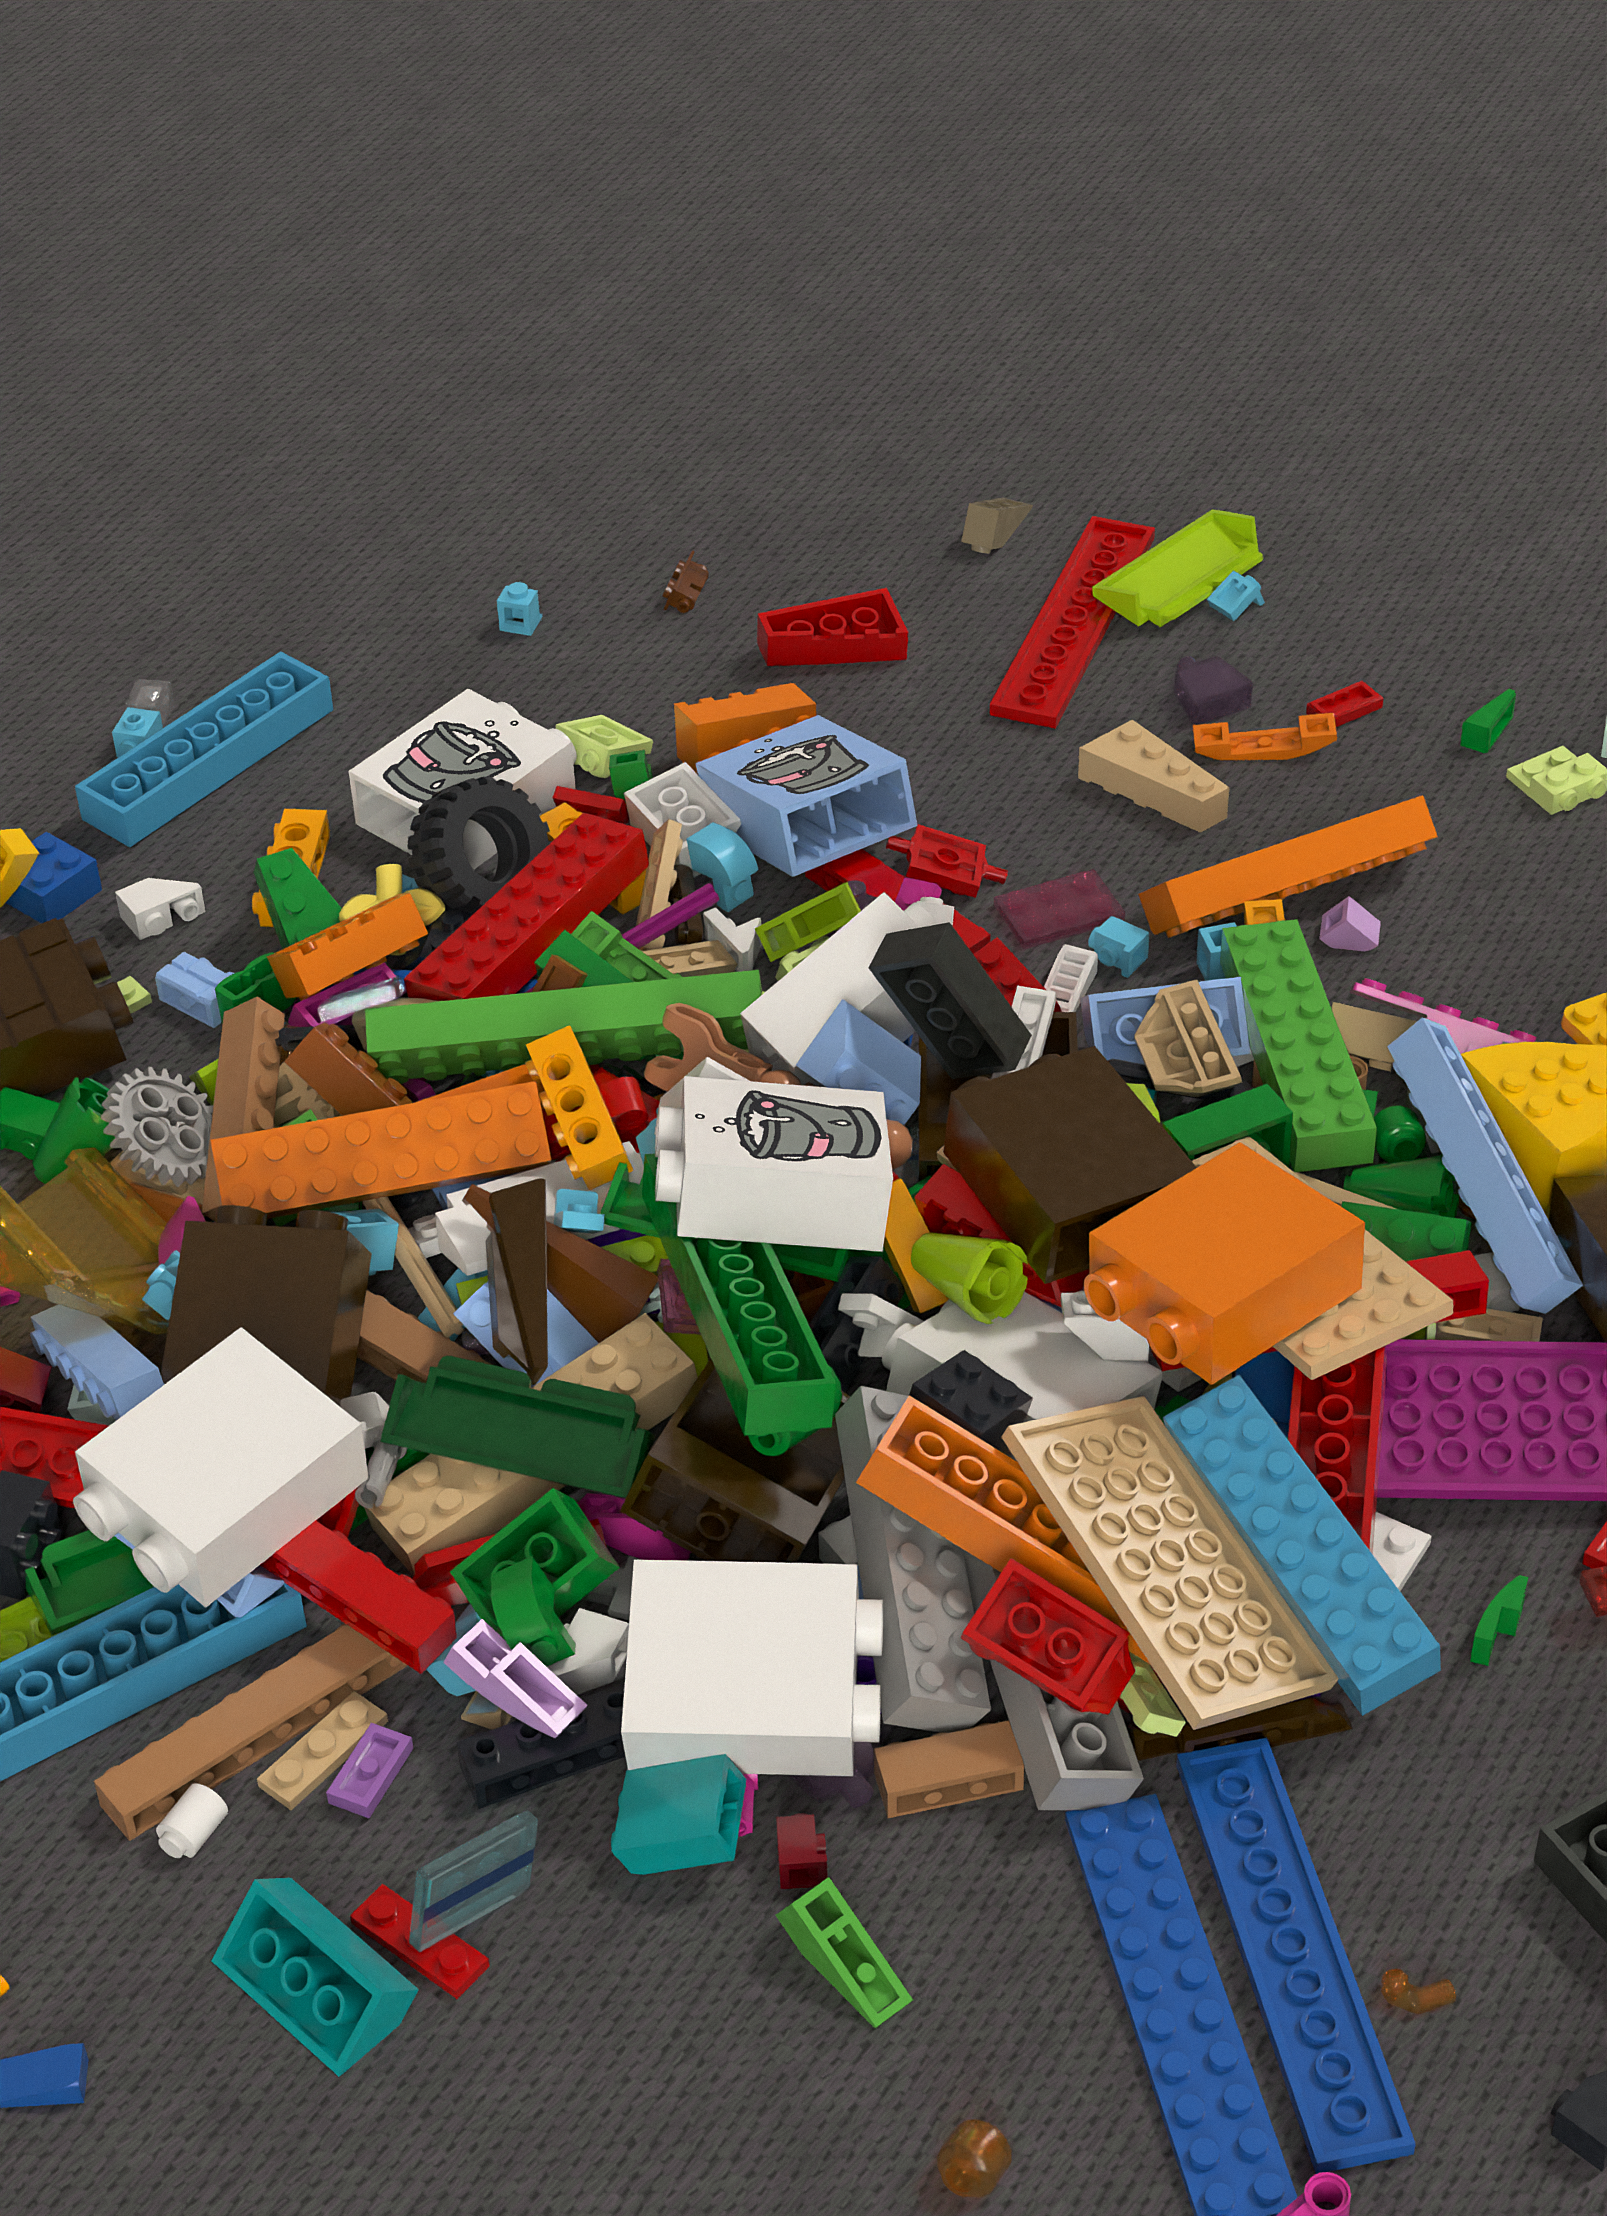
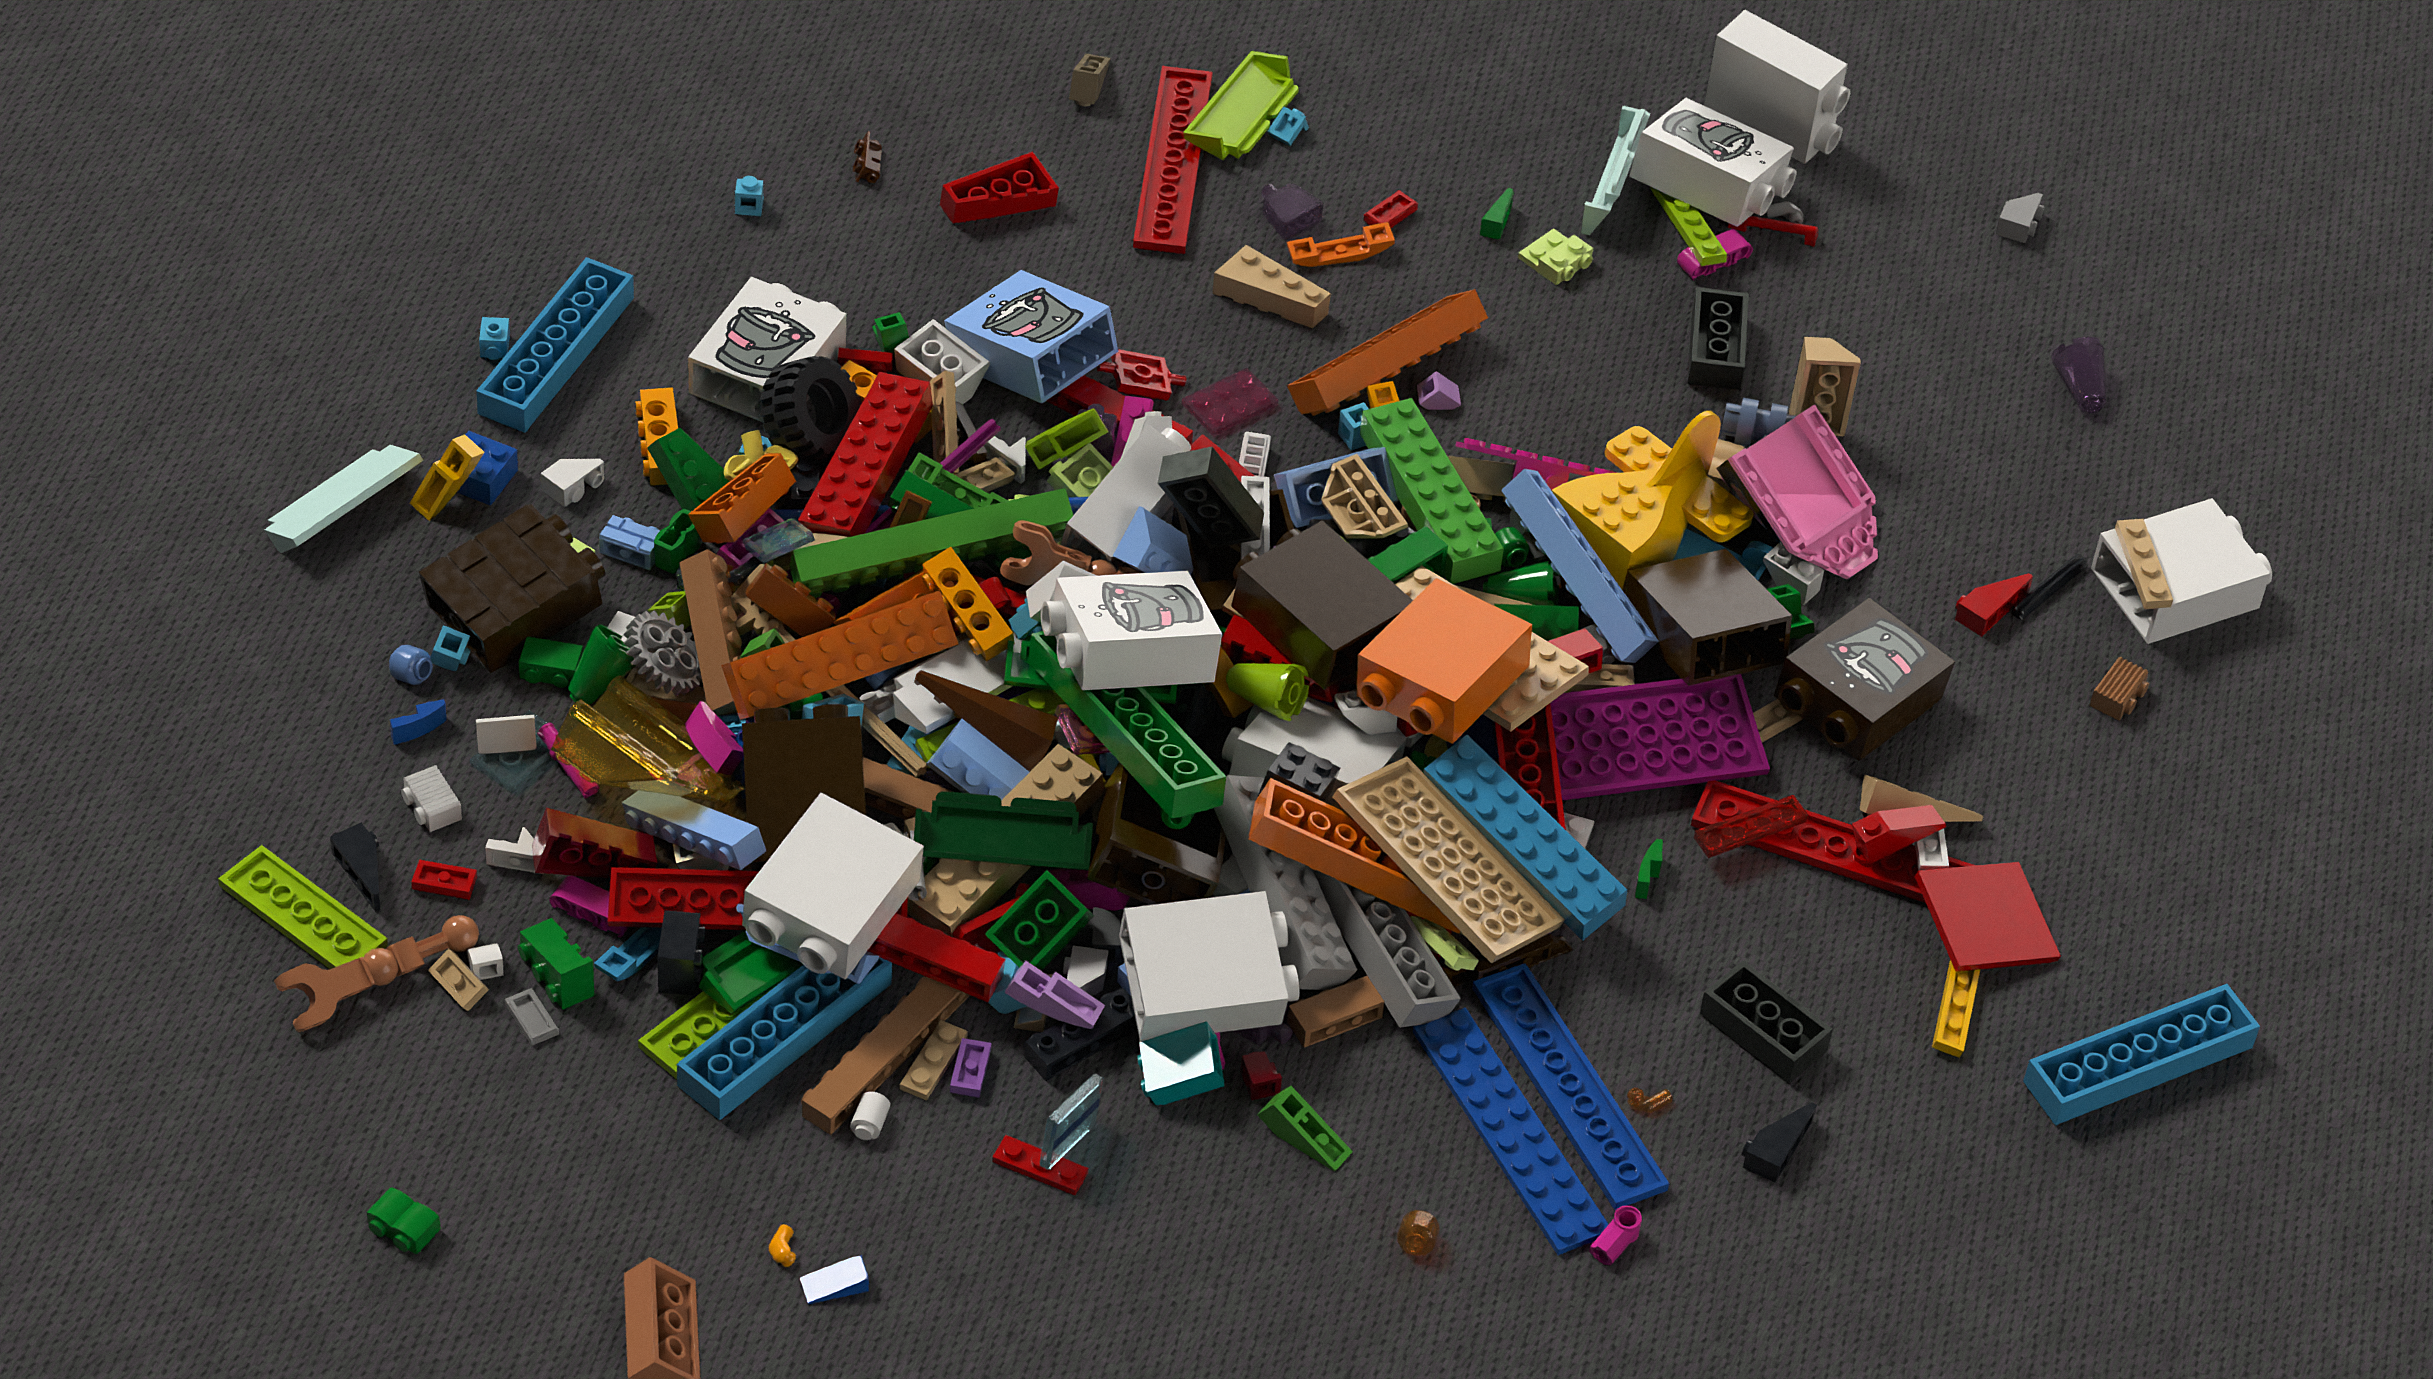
camera: 20 degrees left, 5 degrees up
(153, 696) = (492, 304): clear brick -> none
(162, 1286) = (725, 767): medium azure brick -> none
(312, 1973) = (983, 1194): teal slope -> none
(519, 1275) = (972, 729): dark brown wedge -> none
(525, 1612) = (1052, 950): green brick -> none
(578, 1211) = (989, 679): medium azure bracket -> none
(600, 737) = (859, 305): yellowish green plate -> none
(726, 860) = (985, 393): medium azure brick -> none
(728, 723) = (956, 280): orange wedge -> none
(877, 1318) = (1213, 729): white slope -> none
(1051, 1640) = (1389, 920): red slope -> none
(1120, 945) = (1283, 426): medium azure brick -> none

